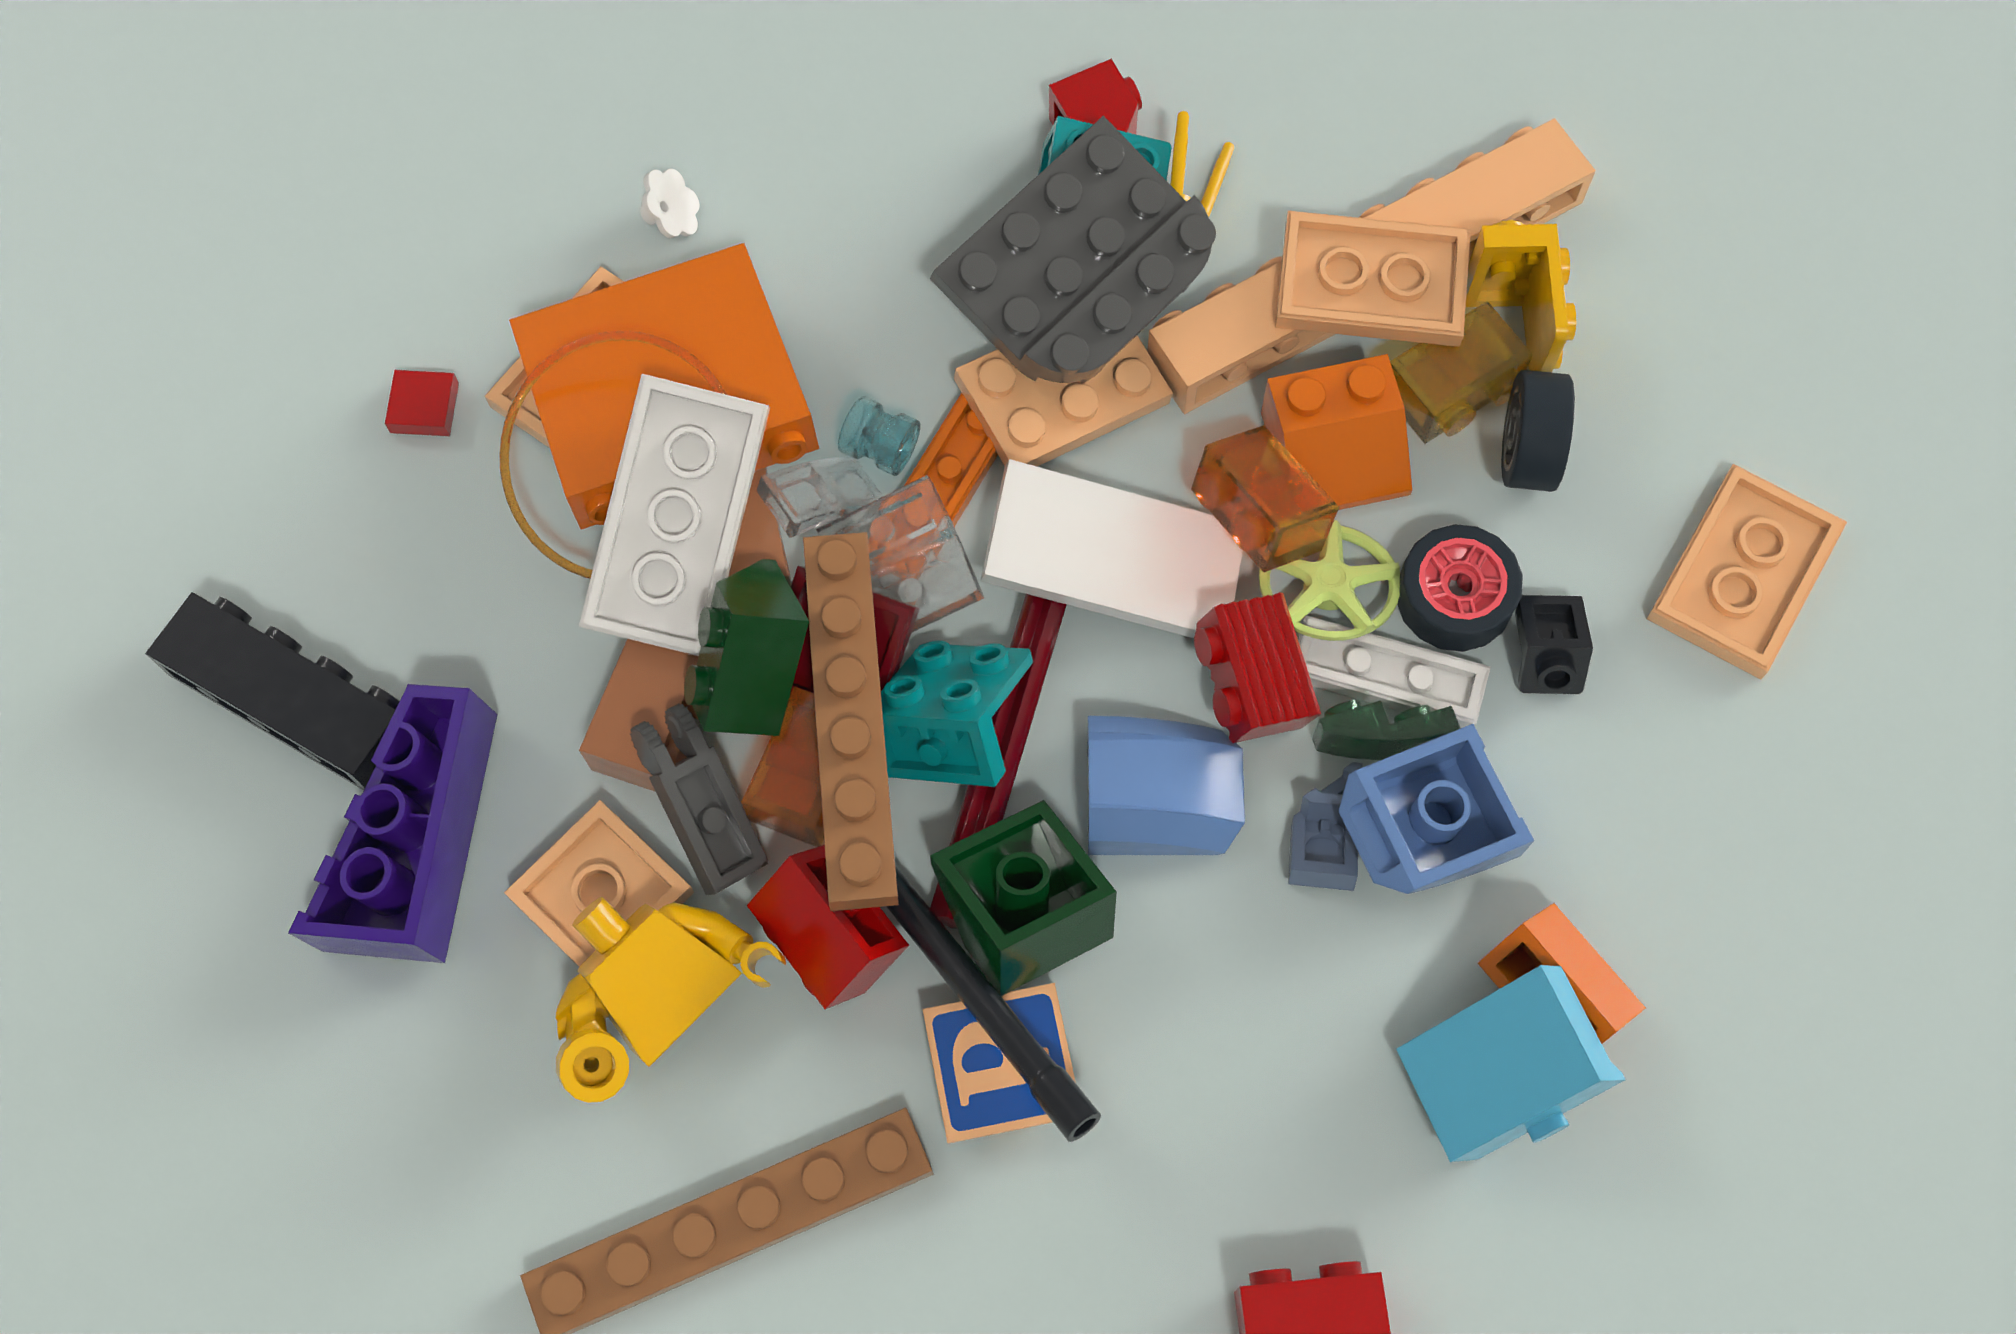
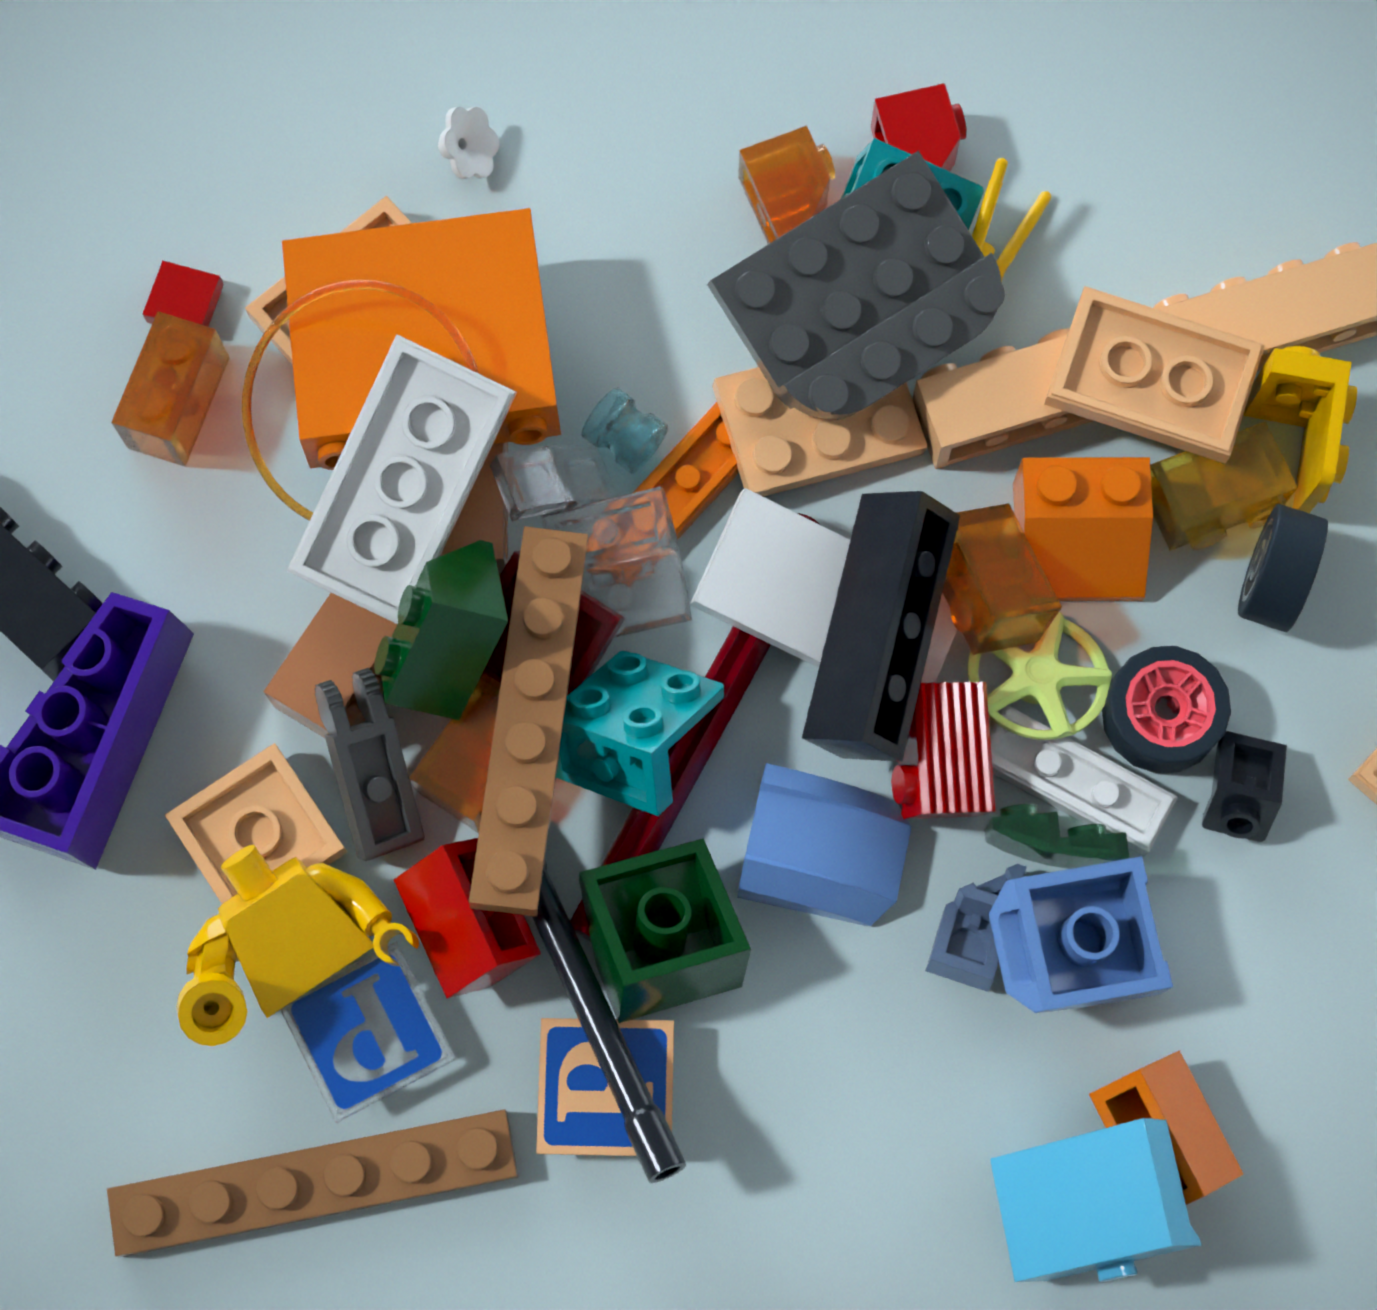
camera: 10 degrees right, 5 degrees up
(427, 486) = (171, 389): none -> clear orange brick
(752, 1062) = (367, 1033): none -> piece
(979, 175) = (785, 180): none -> clear orange slope
(1171, 560) = (881, 626): none -> black brick

